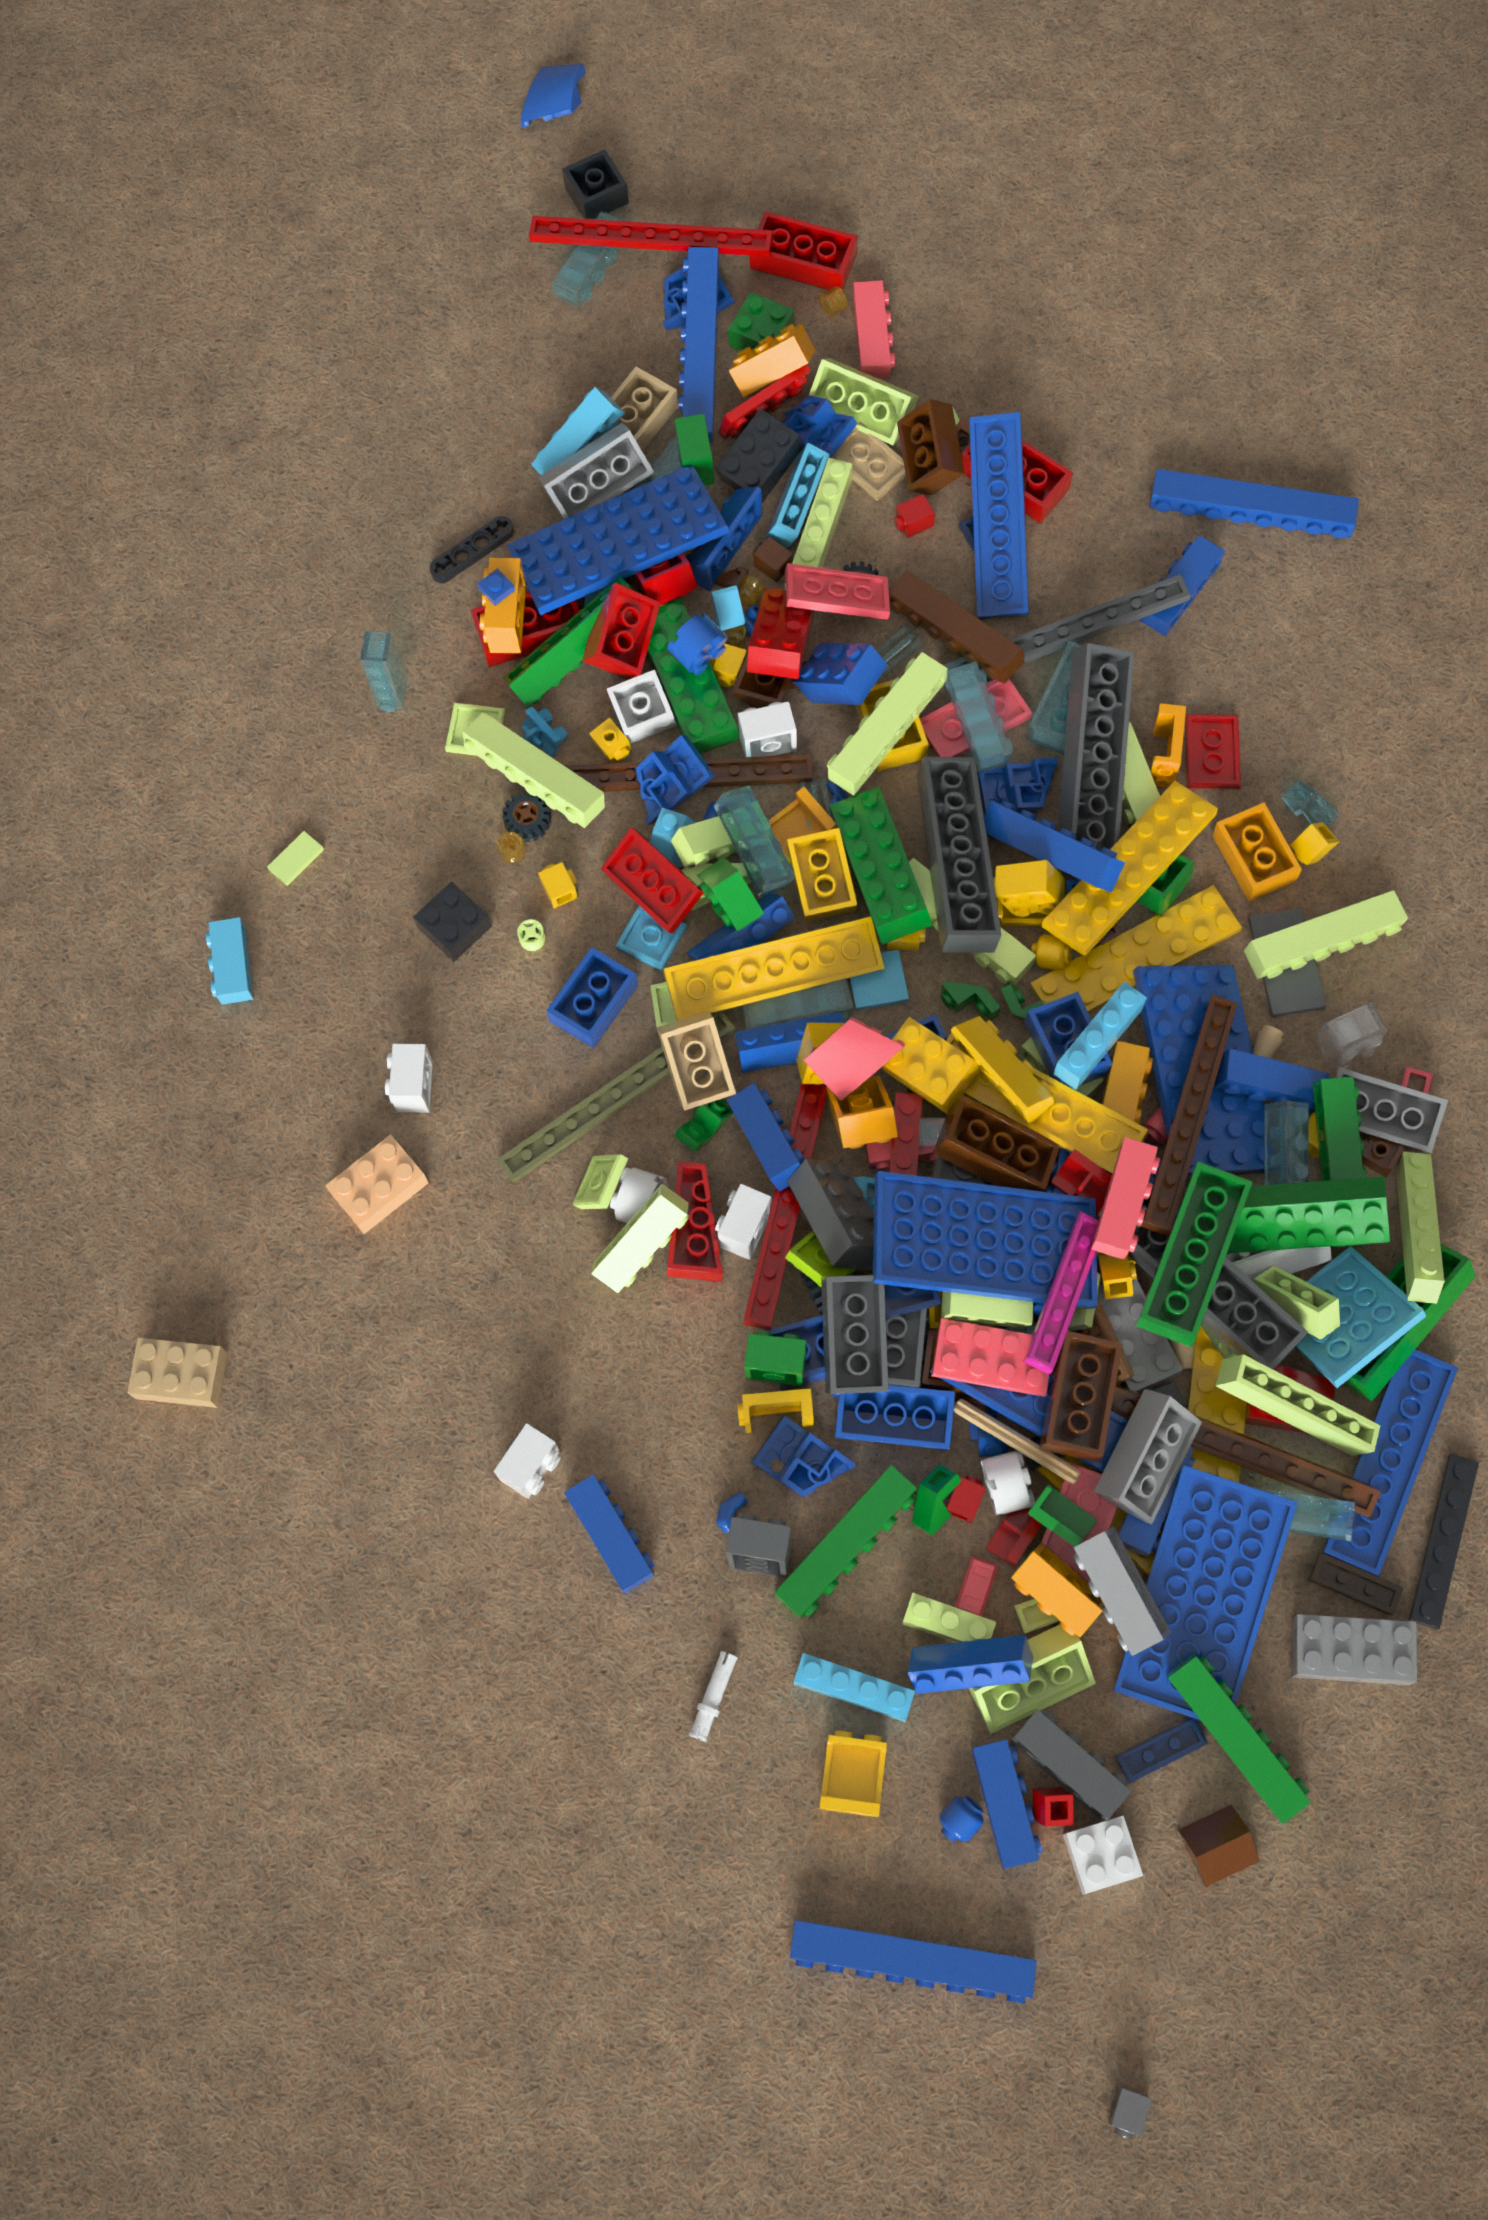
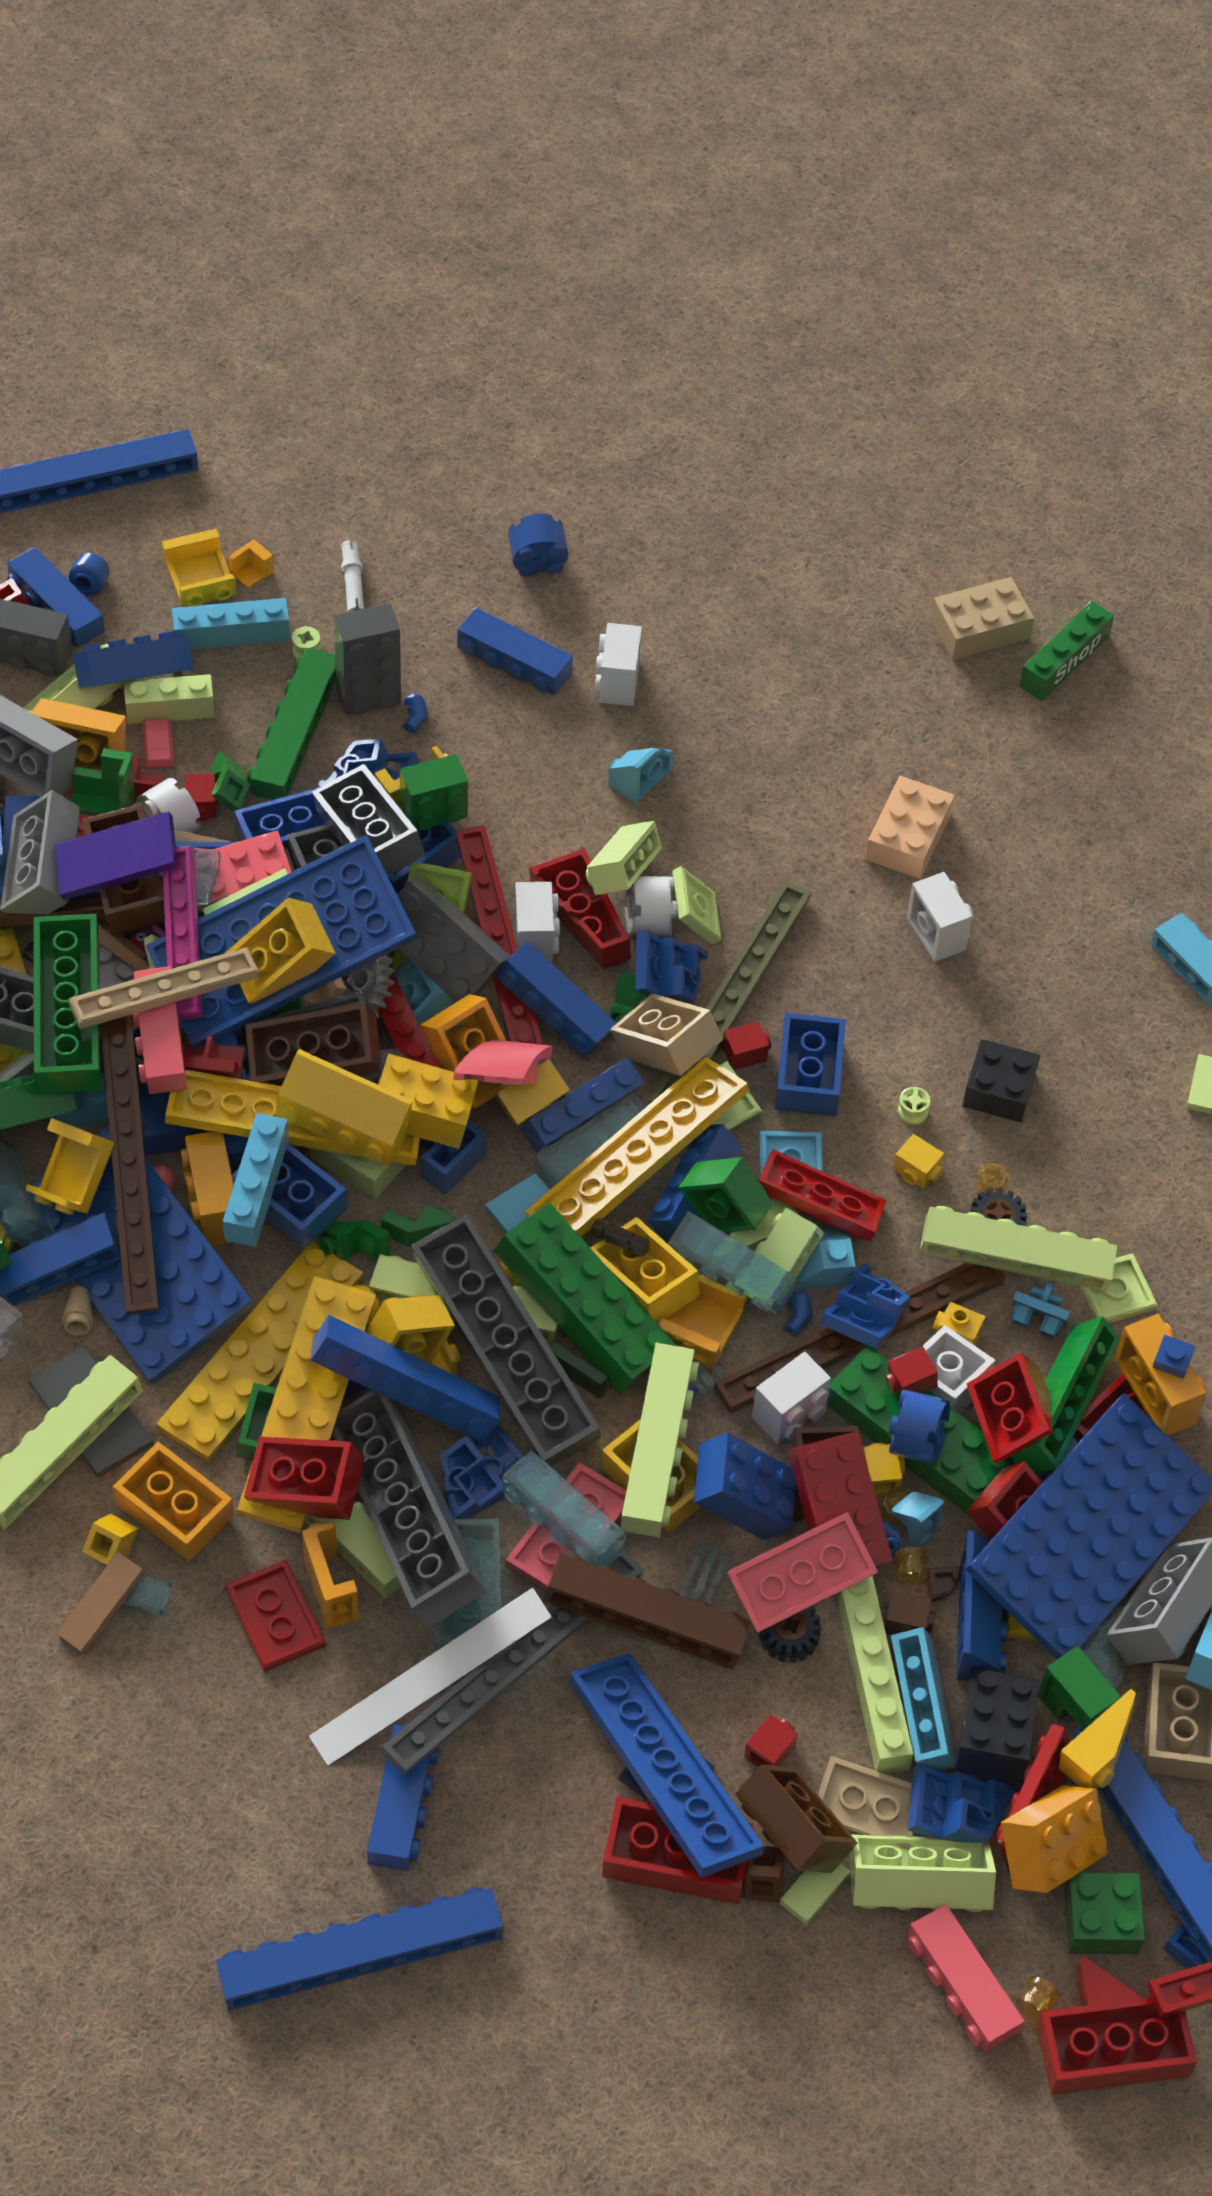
camera: 145 degrees right, 15 degrees down
(127, 1303) = (1066, 650): none -> green brick
(526, 1640) = (538, 545): none -> blue brick
(570, 1345) = (639, 771): none -> medium azure slope
(630, 1042) = (746, 1045): none -> red brick
(655, 1132) = (667, 967): none -> blue slope
(678, 691) = (912, 1372): none -> red brick
(712, 398) = (1095, 1751): none -> yellow slope
(791, 285) = (1099, 1986): none -> red slope
(793, 1639) = (305, 635): none -> yellowish green wheel
(801, 1757) = (251, 564): none -> light orange panel
(829, 895) = (620, 1237): none -> dark brown axle
(907, 831) = (581, 1371): none -> dark green tile
(994, 1215) = (284, 948): none -> yellow slope
(1011, 1362) = (206, 871): none -> clear light blue slope
(1092, 1388) = (116, 855): none -> dark purple tile
(1112, 1216) = (163, 988): none -> tan tile
(1141, 642) = (430, 1676): none -> white sticker
(1162, 797) = (306, 1476): none -> red slope
(1238, 1132) = (73, 1169): none -> yellow panel
(1338, 801) = (101, 1602): none -> medium nougat tile

